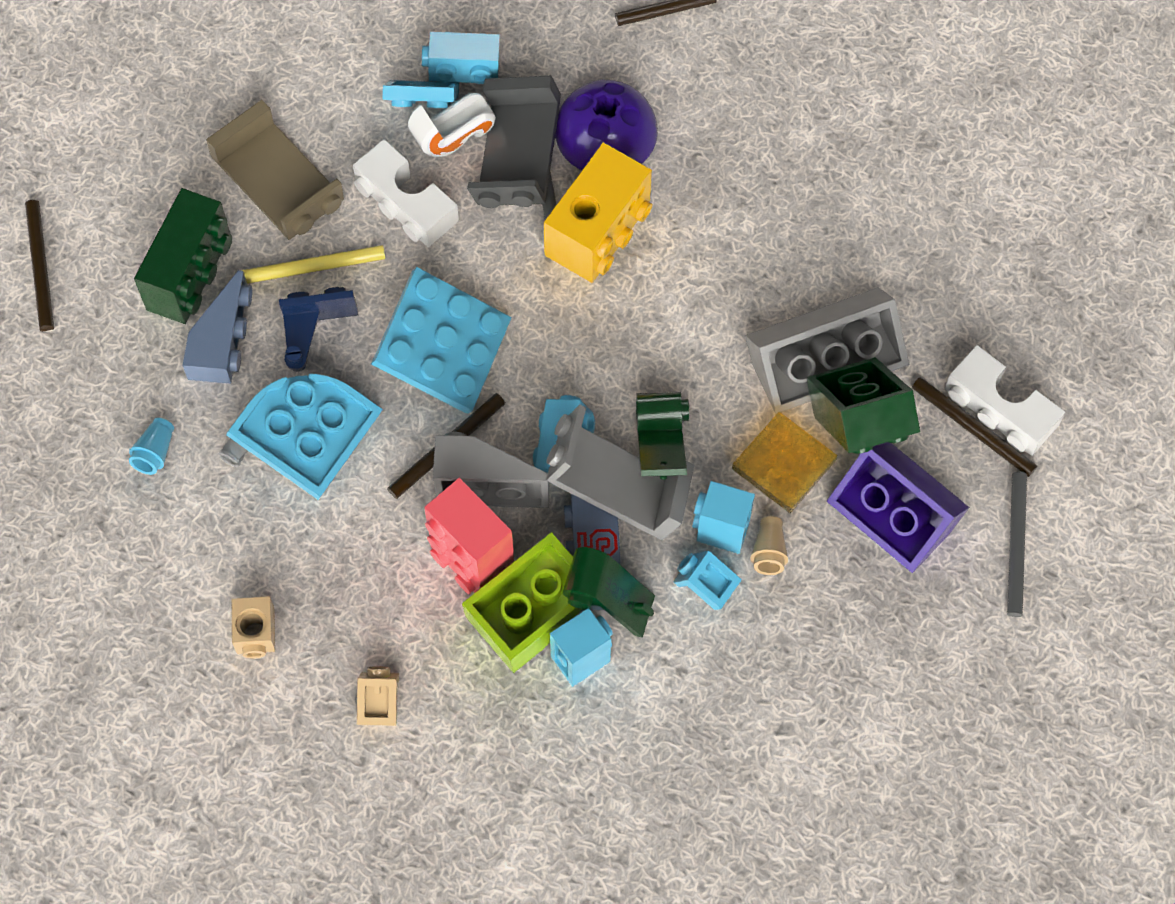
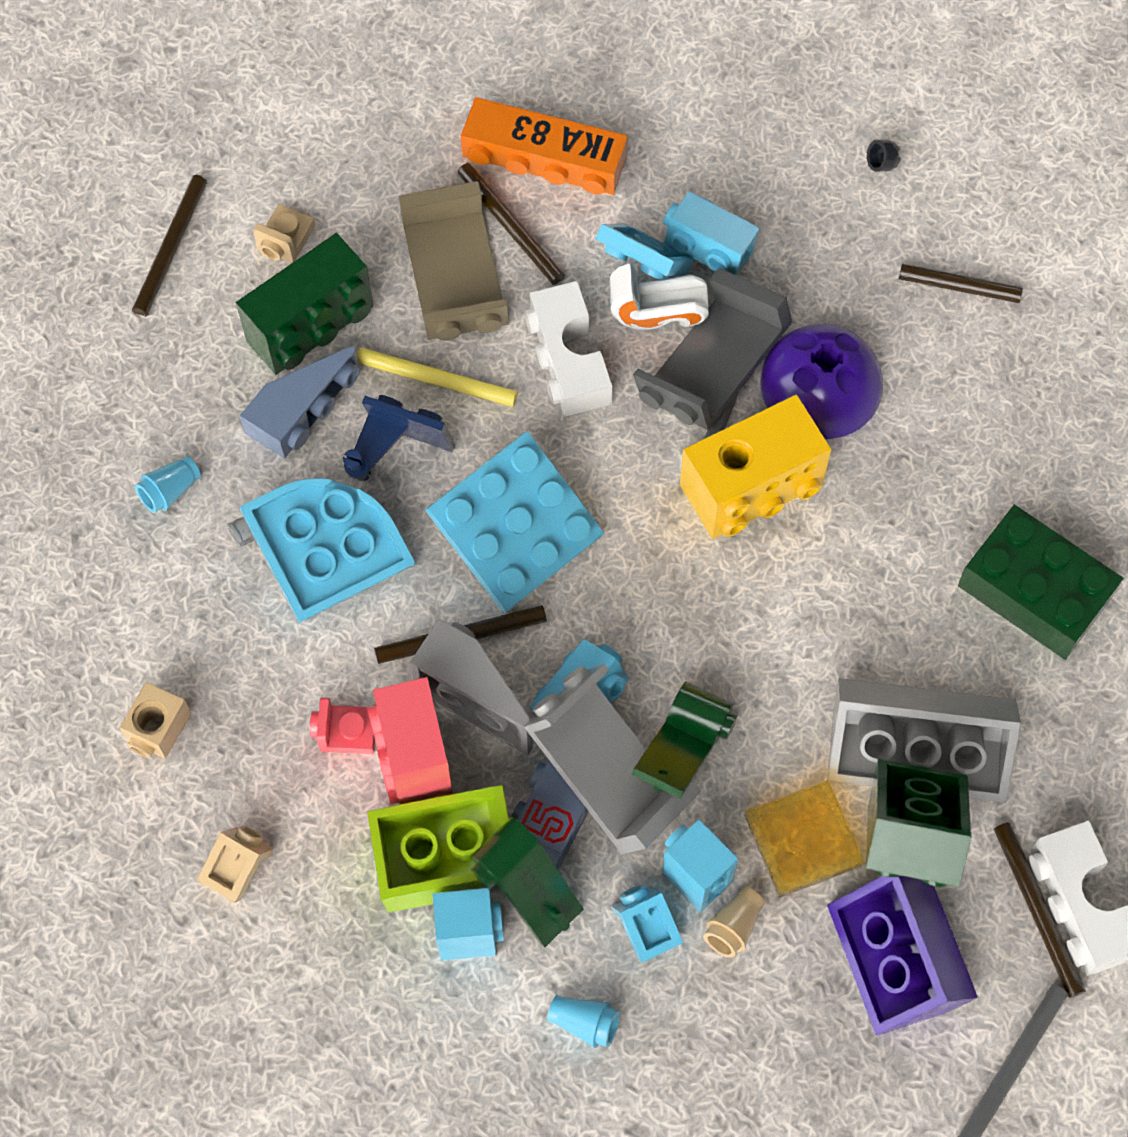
camera: 30 degrees right, 0 degrees up
(127, 213) = (284, 234): none -> tan bracket
(294, 50) = (544, 146): none -> orange brick
(306, 123) = (513, 226): none -> dark brown bar
(401, 557) = (342, 728): none -> coral bracket
(703, 670) = (586, 1019): none -> medium azure cone
(847, 196) = (1039, 581): none -> dark green brick

